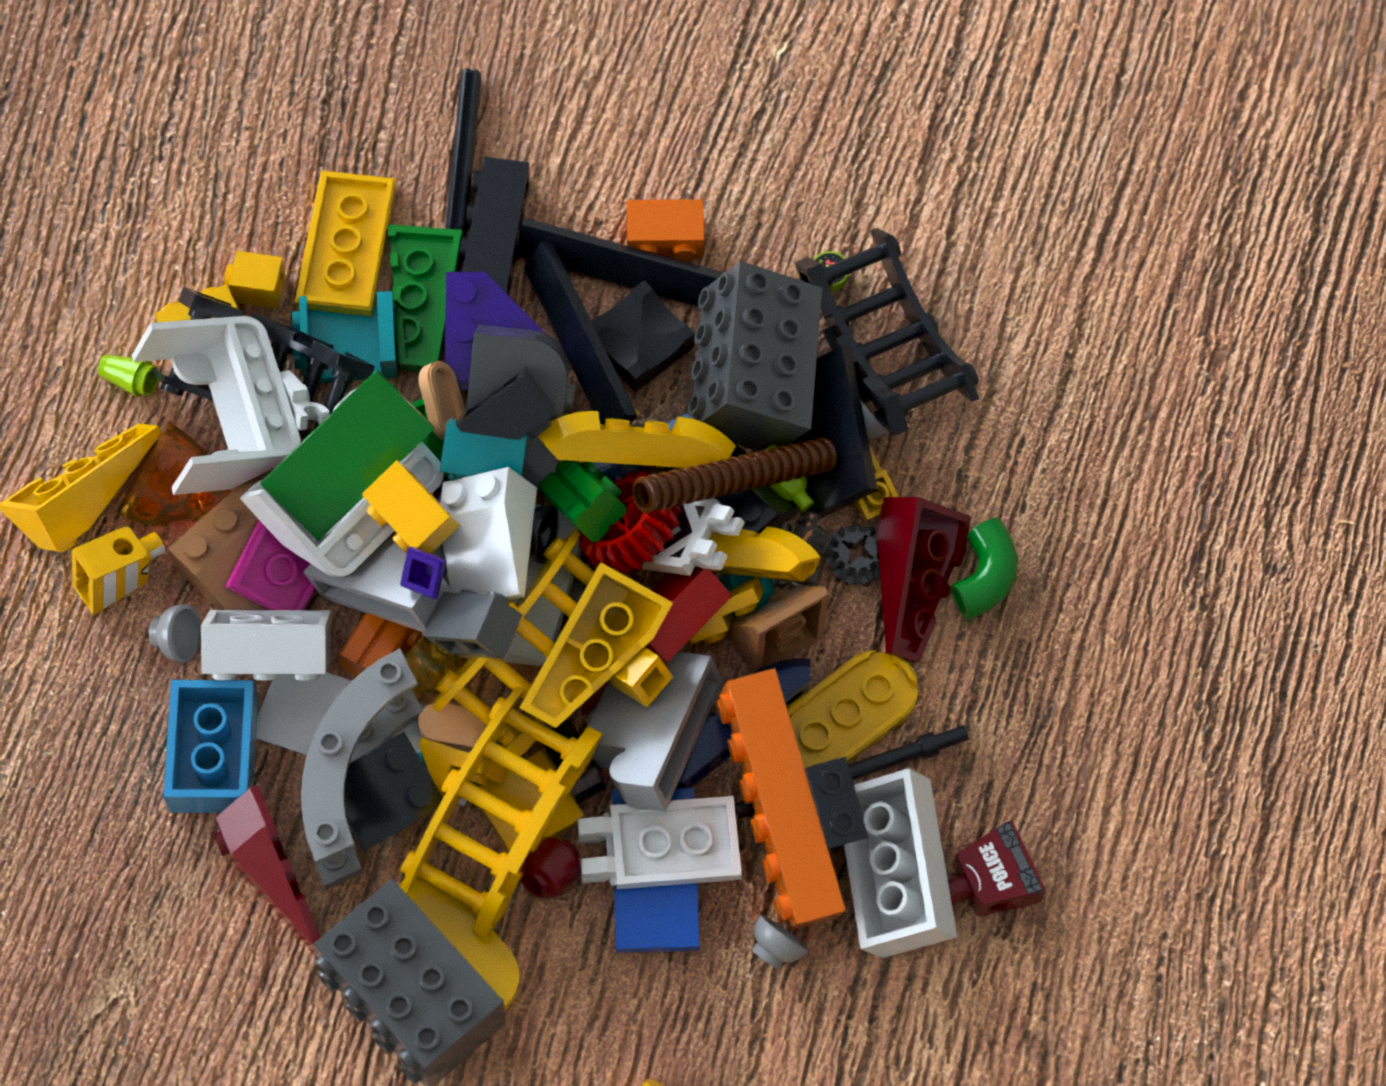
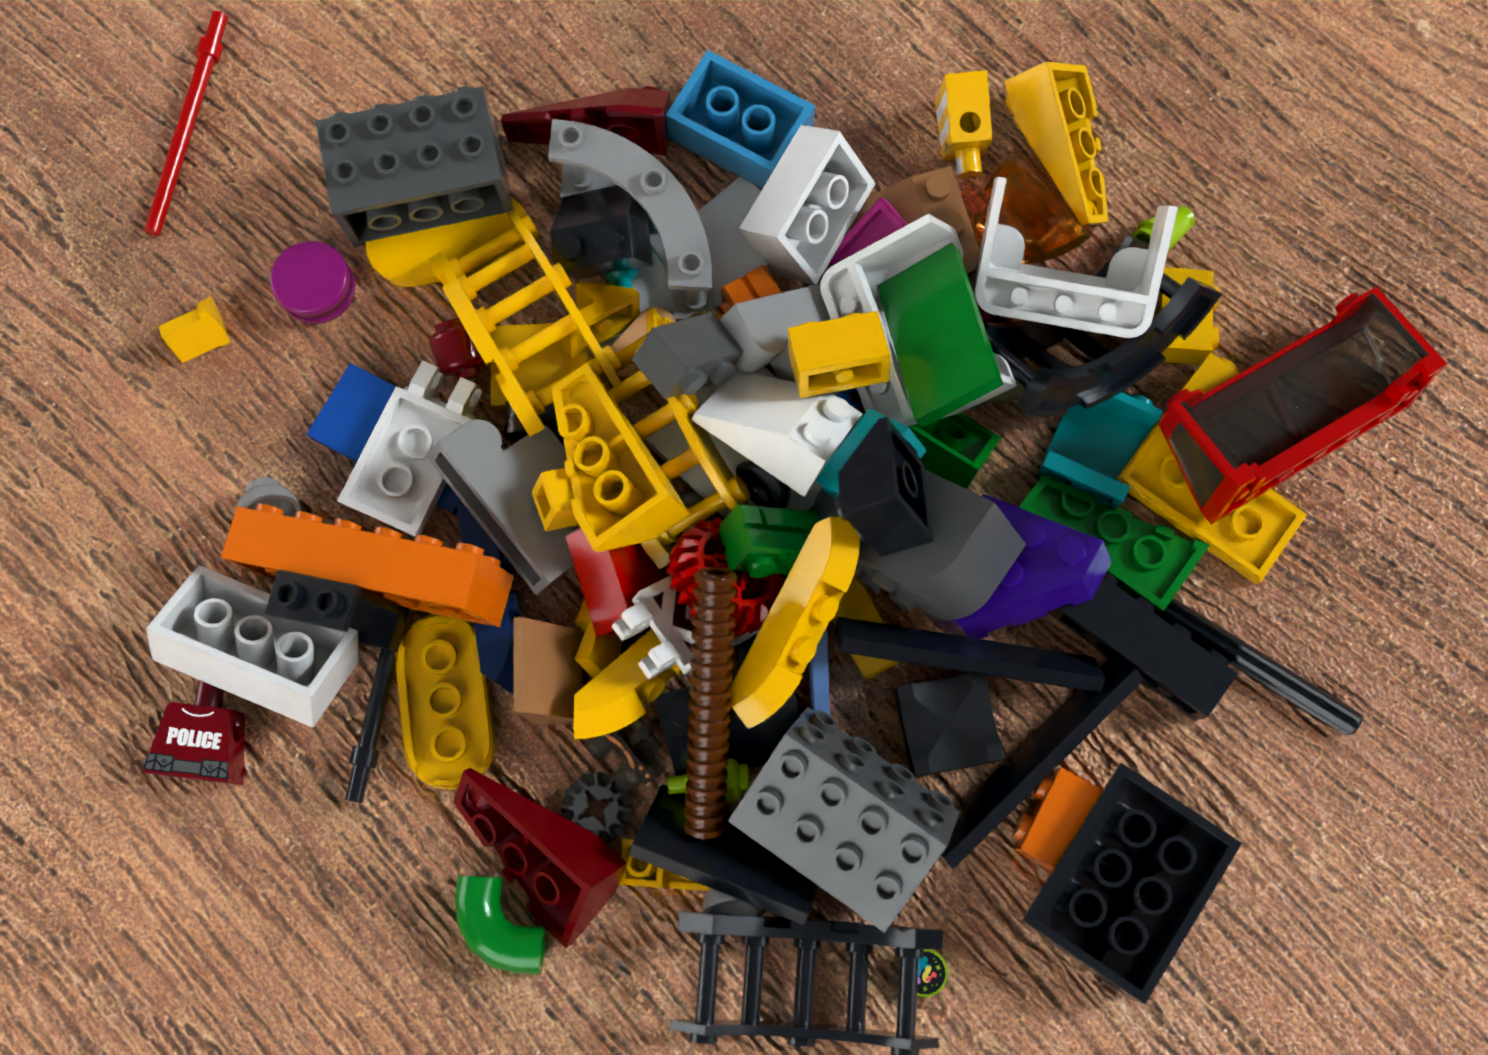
camera: 125 degrees right, 10 degrees up
(177, 632) = (873, 146): light grey piece -> none
(241, 204) = (1298, 404): none -> clear smoke windscreen
(300, 401) = (1041, 337): white plate -> none
(423, 572) = (761, 328): dark purple slope -> none
(440, 395) = (976, 473): light nougat tile -> none
(560, 1031) = (312, 282): none -> magenta head
(683, 155) = (1131, 884): none -> black slope

